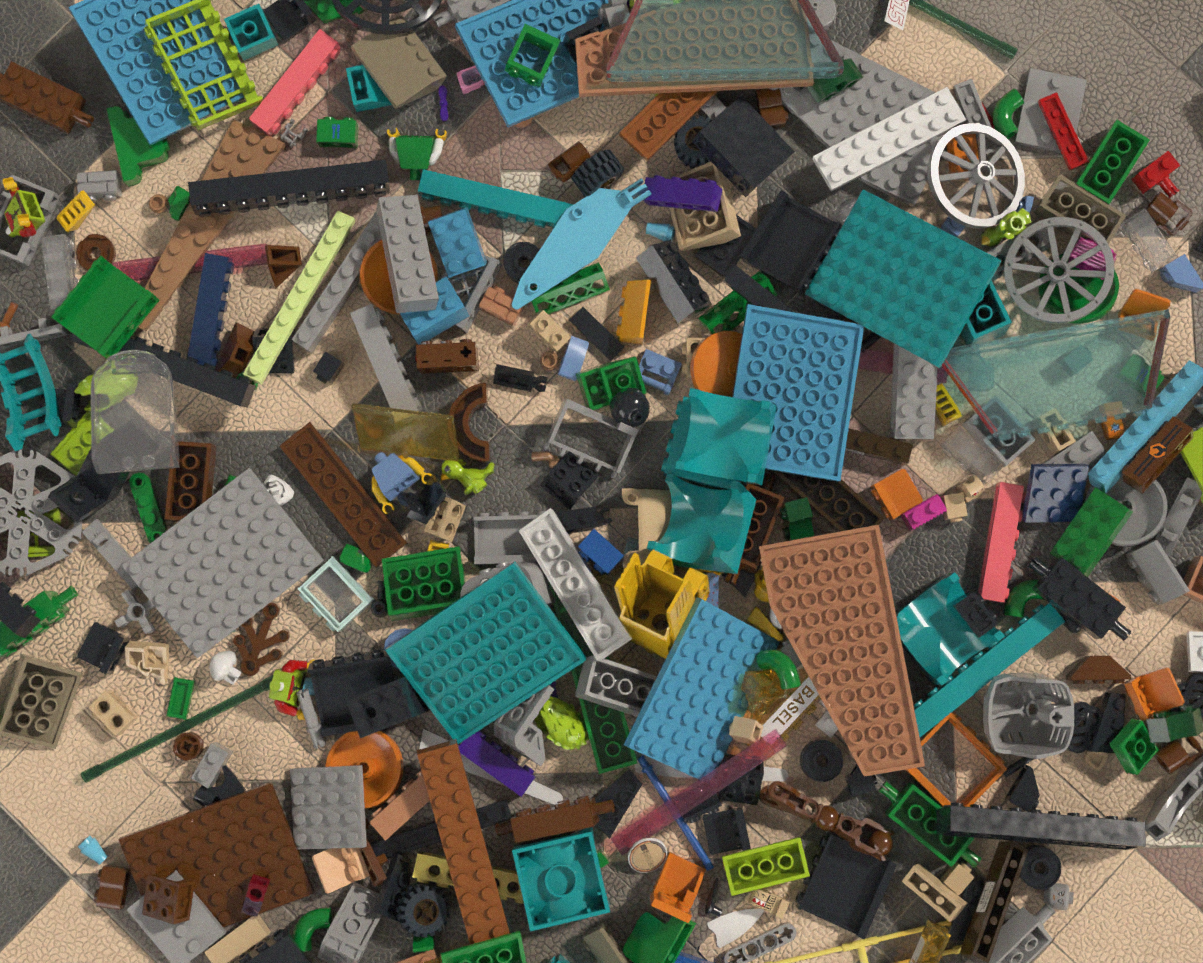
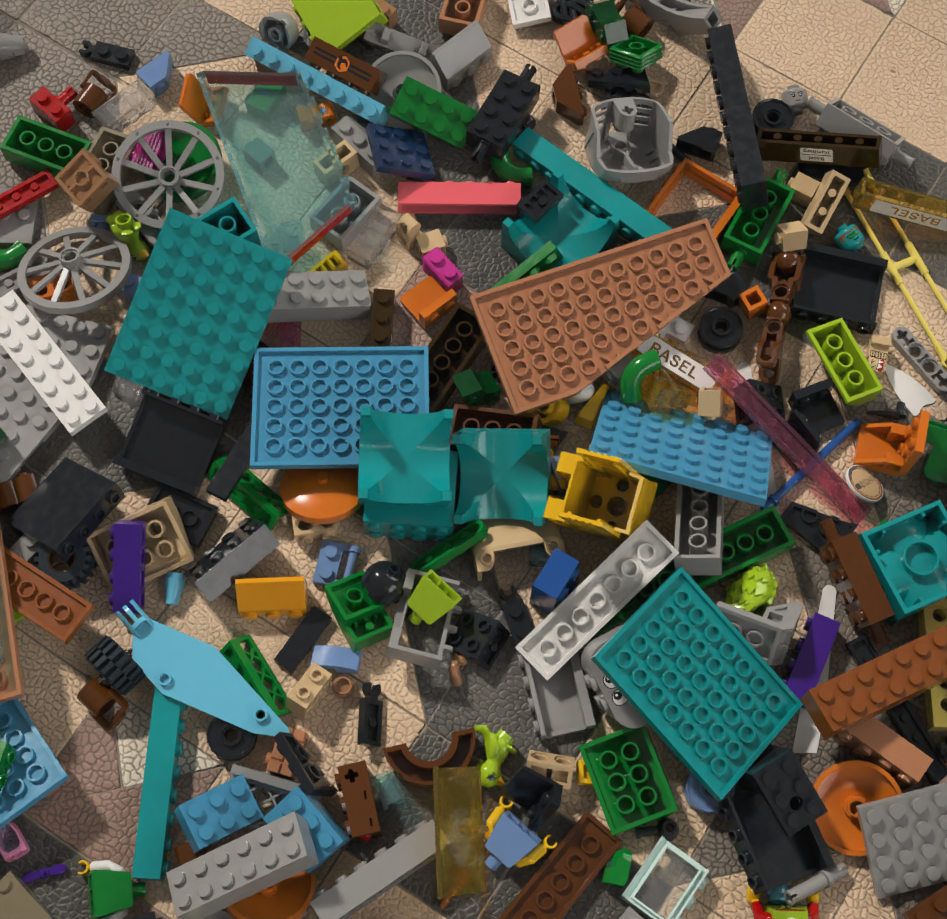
camera: 105 degrees left, 15 degrees down
(455, 383) = (388, 789): none -> clear light blue brick
(476, 316) = (308, 775): none -> black wing
(606, 446) = (431, 599): none -> lime torso
(650, 469) = (451, 547): none -> green plate
(842, 797) = (752, 302): none -> orange brick
(896, 909) = (849, 237): none -> teal head
(903, 850) = (791, 236): none -> tan brick
(907, 588) = (538, 262): none -> green fence
(1060, 193) = (86, 180): none -> medium nougat piece

